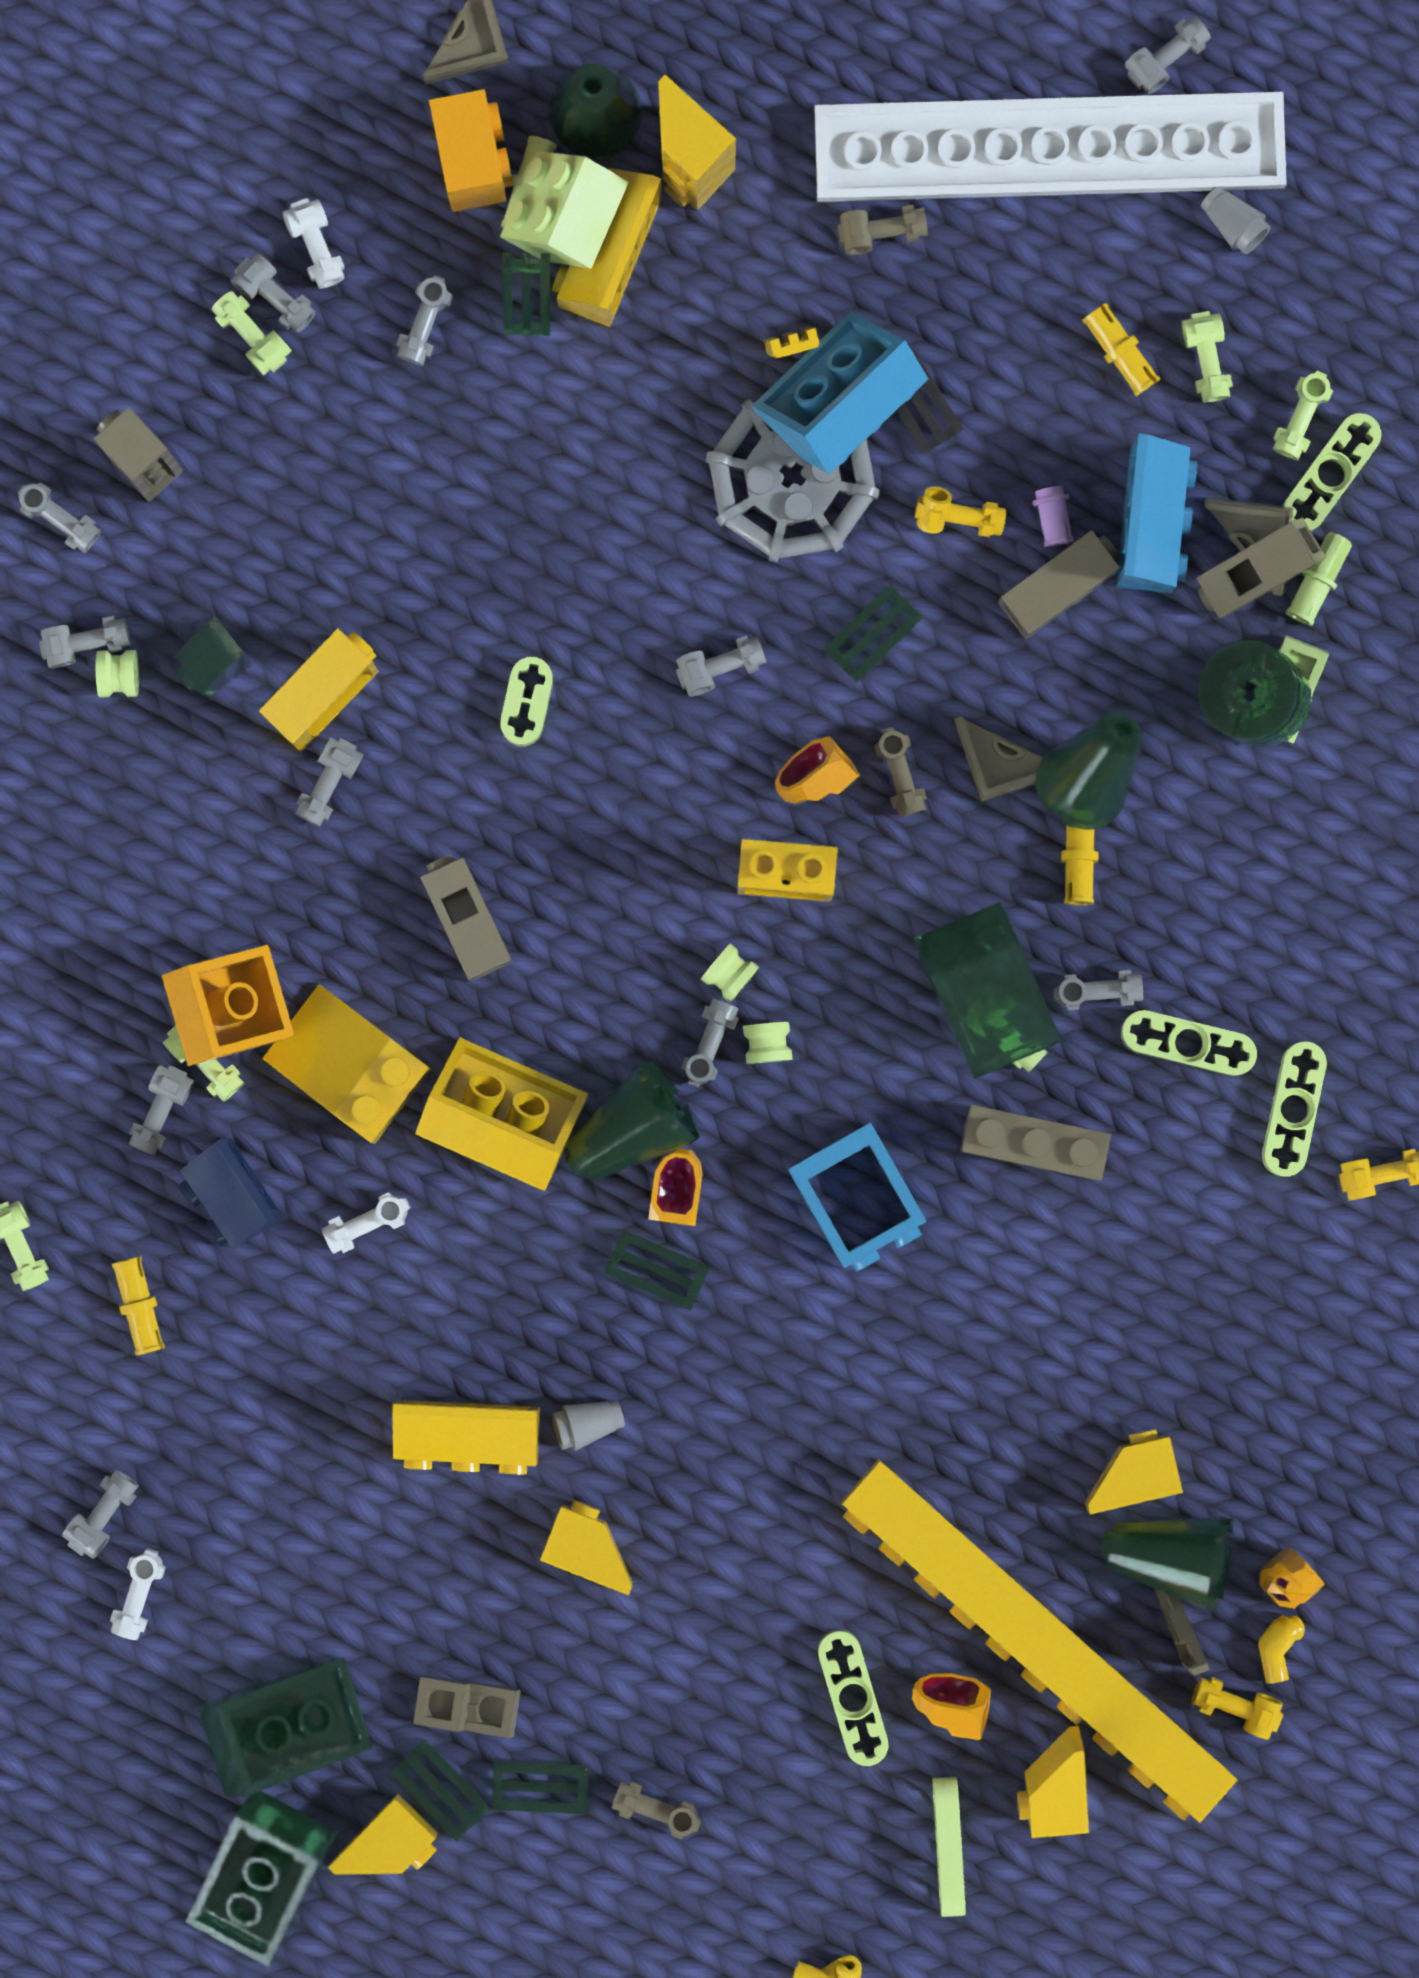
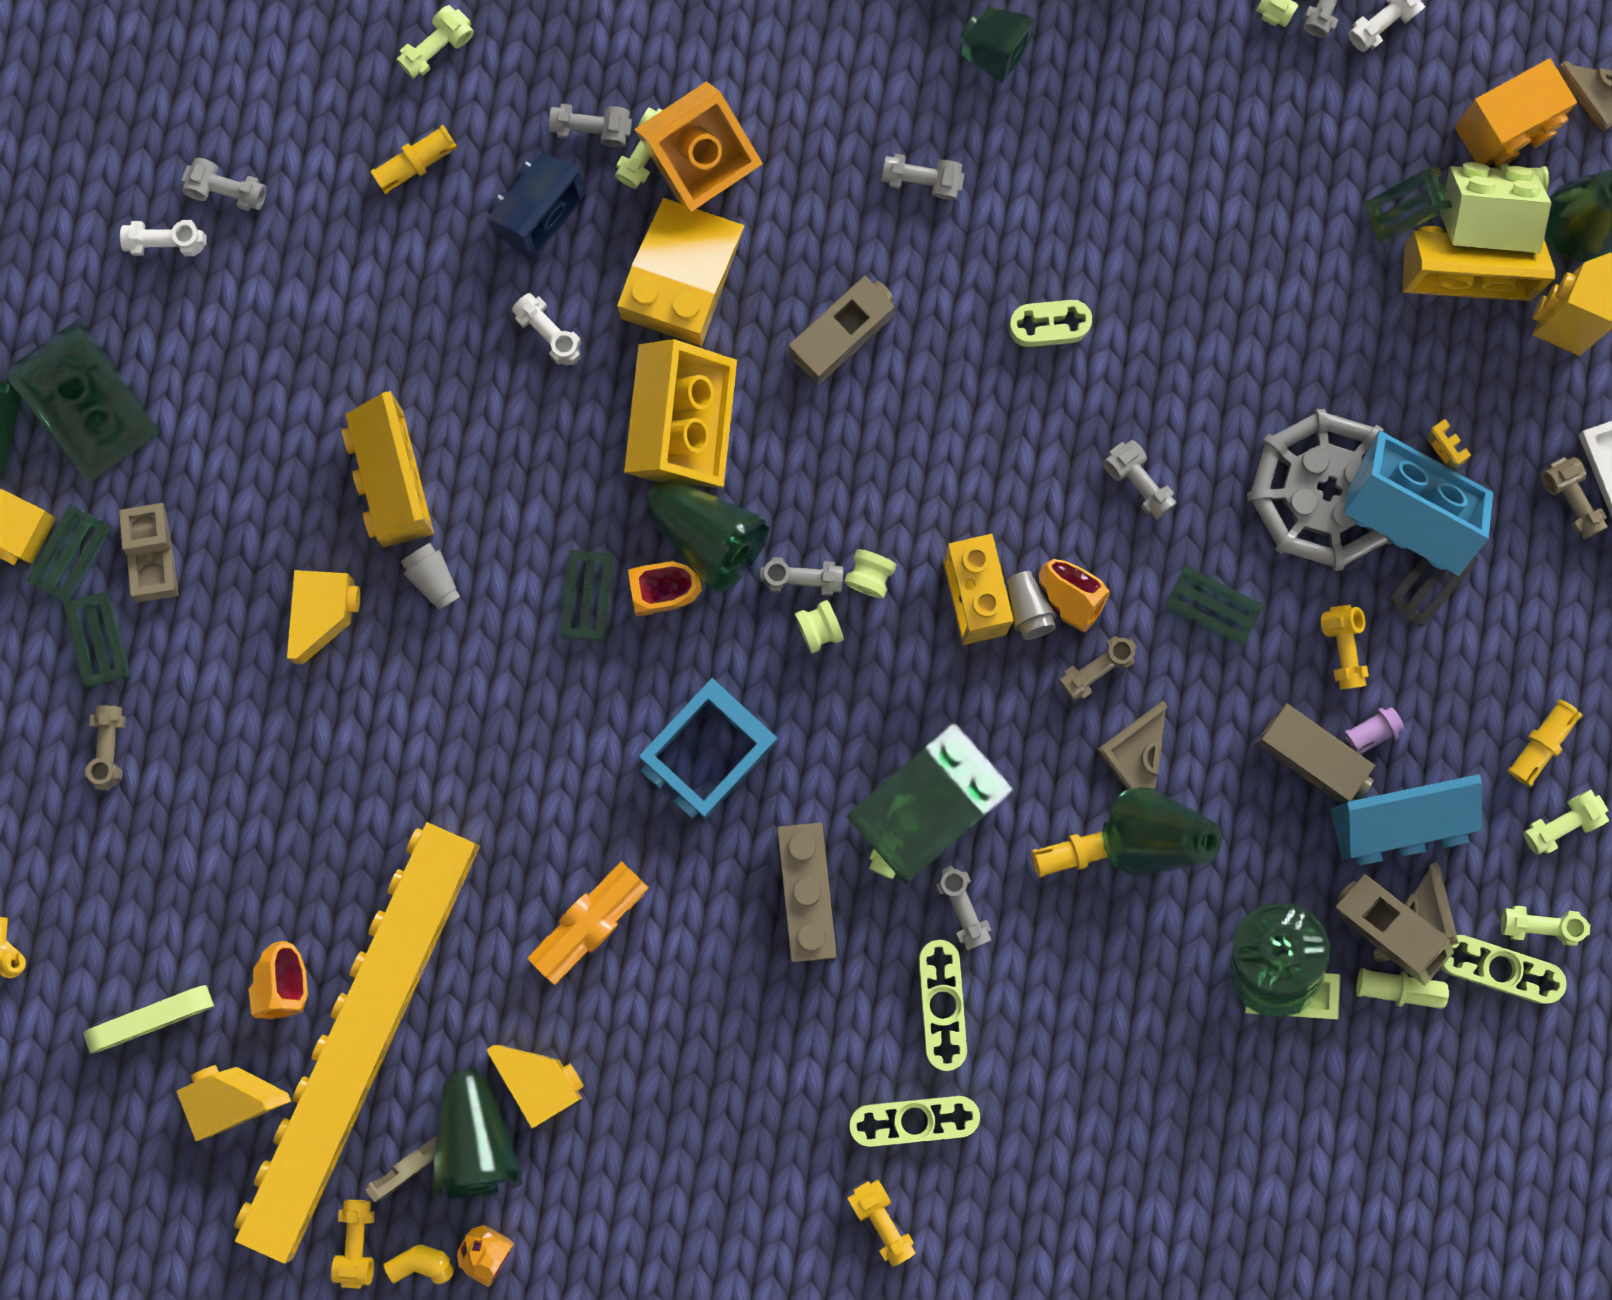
camera: 70 degrees right, 5 degrees down
(321, 688) = (1000, 138): yellow window -> none
(434, 299) = (1374, 132): light grey bar -> none
(815, 821) = (1030, 607): none -> light grey cone
(851, 1734) = (236, 918): yellowish green beam -> none
(993, 1373) = (588, 923): none -> light orange piece

